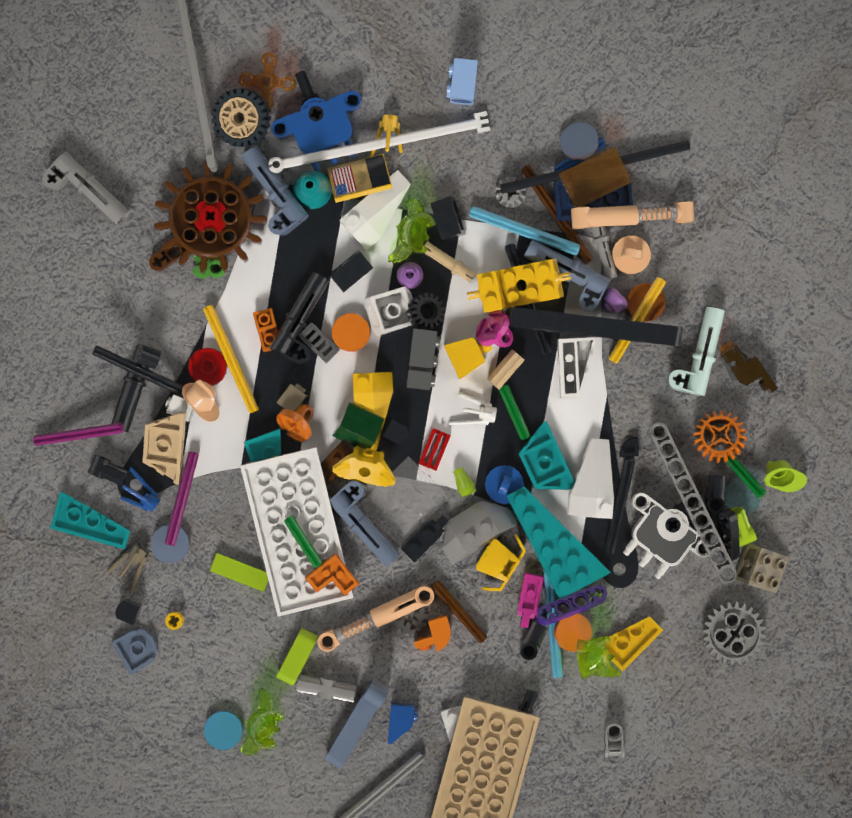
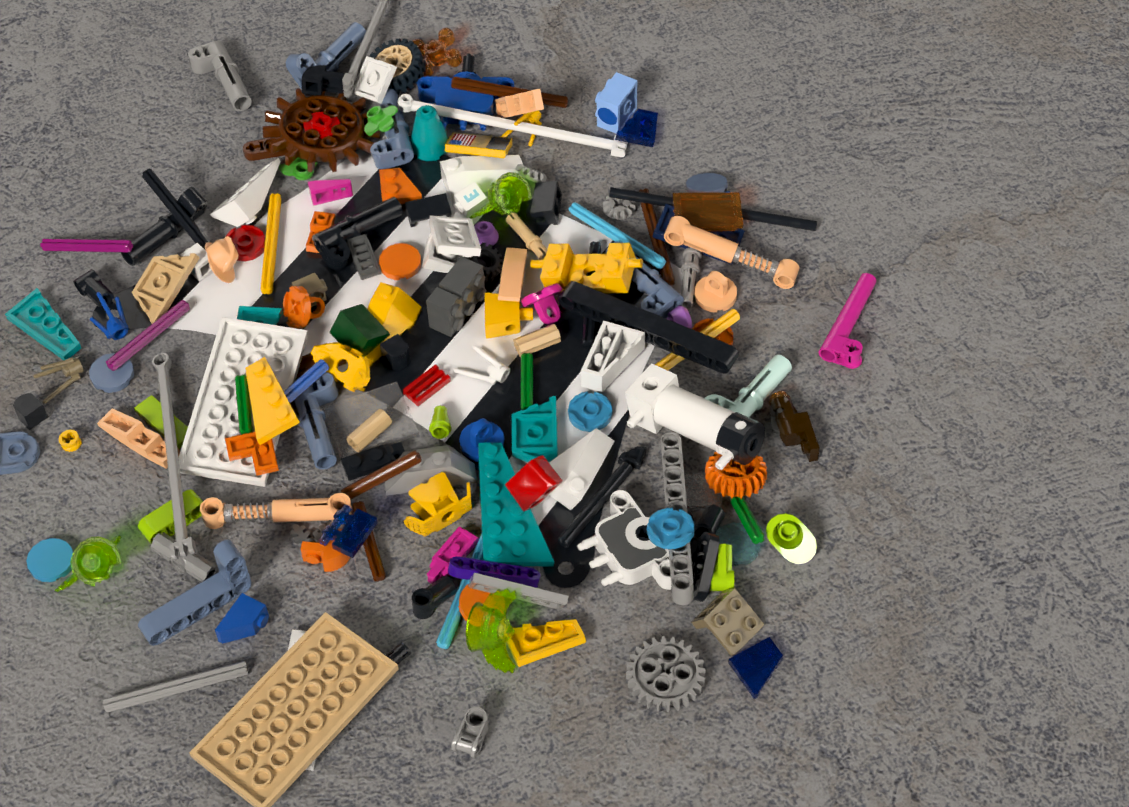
camera: 25 degrees right, 35 degrees down
(173, 131) = (331, 57): none -> sand blue piece
(181, 170) = (317, 80): none -> black brick
(186, 323) = (248, 199): none -> white wedge
(229, 596) = (135, 436): none -> light nougat slope
(232, 146) = (374, 79): none -> white tile
(249, 286) = (325, 190): none -> dark pink slope
(264, 194) = (380, 119): none -> bright green plate
(270, 608) = (182, 540): none -> light grey hinge
(308, 252) = (396, 184): none -> orange wing
(326, 535) = (268, 401): none -> yellow wing
(340, 504) = (306, 380): none -> blue axle
(361, 109) = (502, 91): none -> reddish brown axle
(380, 129) = (519, 104): none -> light nougat slope
(382, 247) = (469, 200): none -> white brick
(397, 308) = (454, 236): none -> white plate
(412, 517) = (369, 430): none -> tan axle
(427, 193) = (530, 173): none -> light grey gear
(446, 559) = (382, 474): none -> reddish brown axle
(453, 622) = (353, 533): none -> clear blue plate
(457, 315) = (512, 274): none -> light nougat slope
(493, 97) = (639, 129): none -> clear blue wing
(577, 419) = (590, 411): none -> dark azure tile
(577, 525) = (533, 483): none -> red piece
(601, 621) = (524, 592): none -> light grey tile
(674, 408) = (659, 402): none -> white piece
(698, 526) = (670, 528): none -> dark azure tile
(751, 272) = (837, 345): none -> dark pink axle
(796, 594) = (756, 665): none -> clear blue wing

